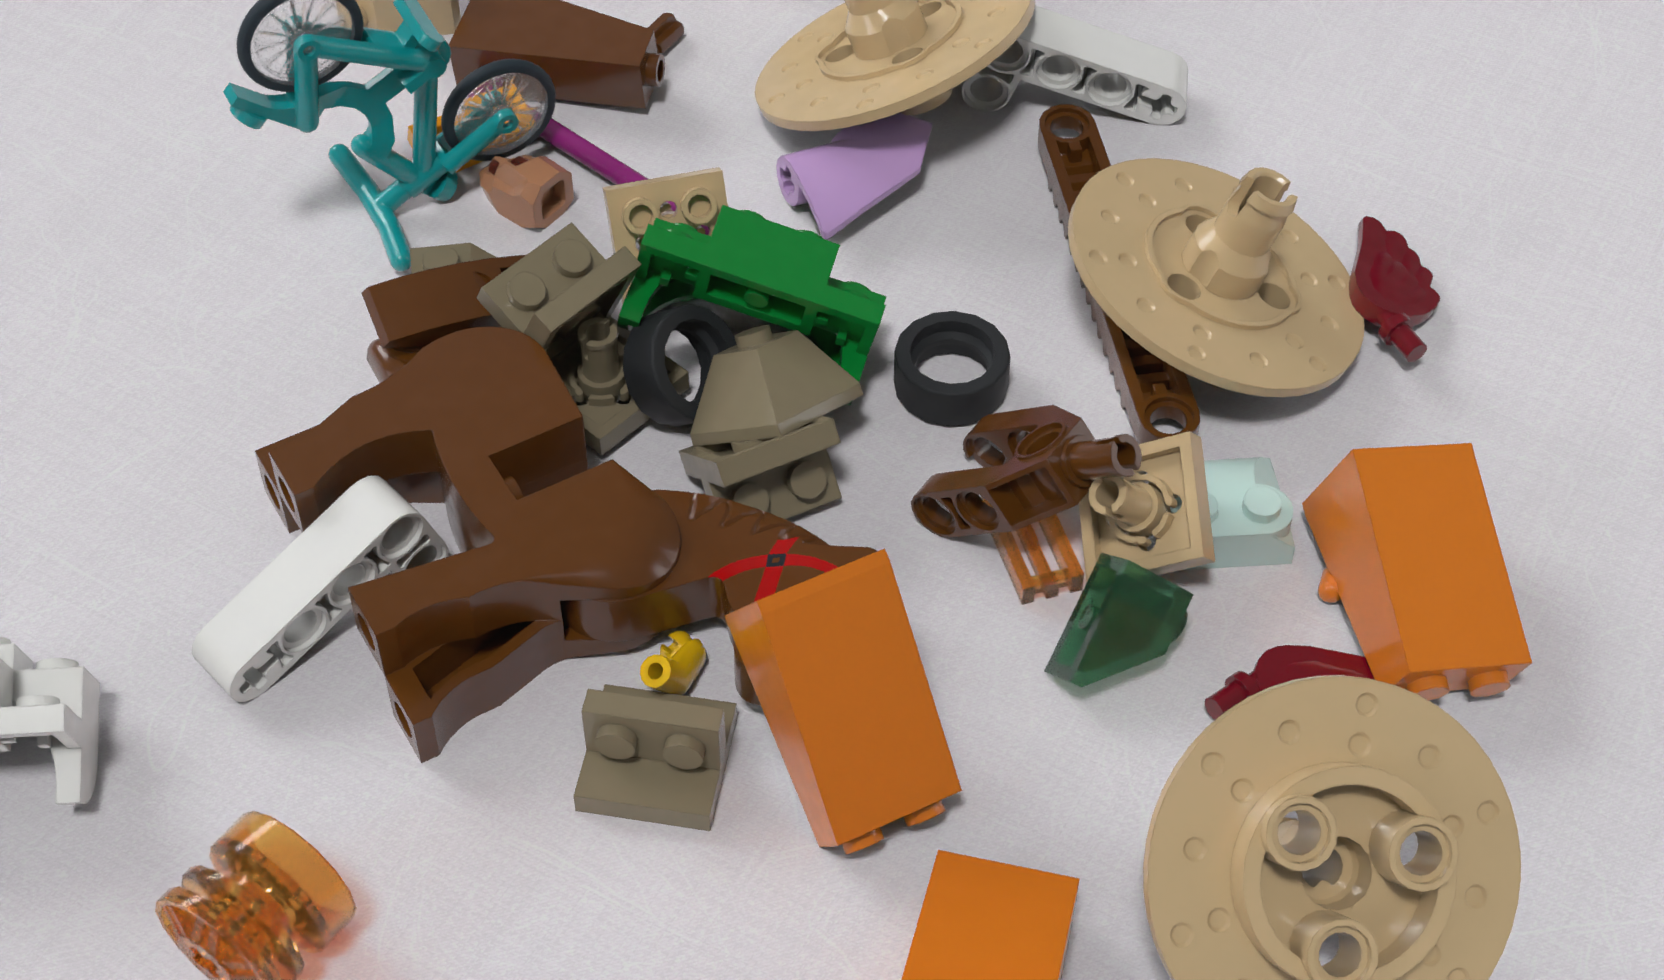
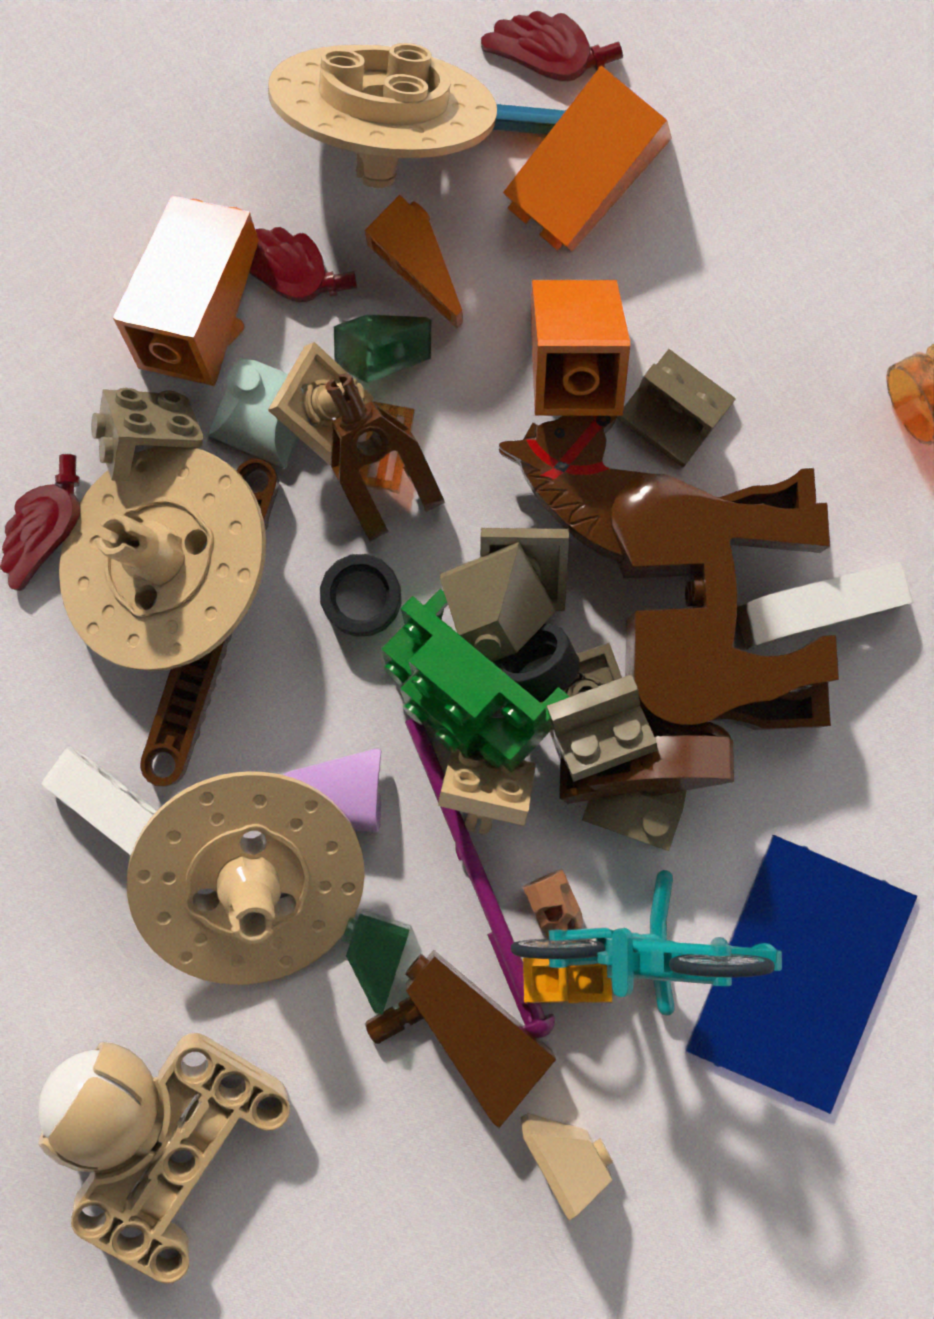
camera: 150 degrees left, 35 degrees up
(182, 254) = (836, 945): none -> clear blue piece
(675, 666) = (643, 450): yellow arm -> none
(710, 72) = (375, 953): none -> clear green slope
(1112, 747) = (409, 246): none -> orange slope
(1343, 397) = (141, 419): none -> dark tan bracket

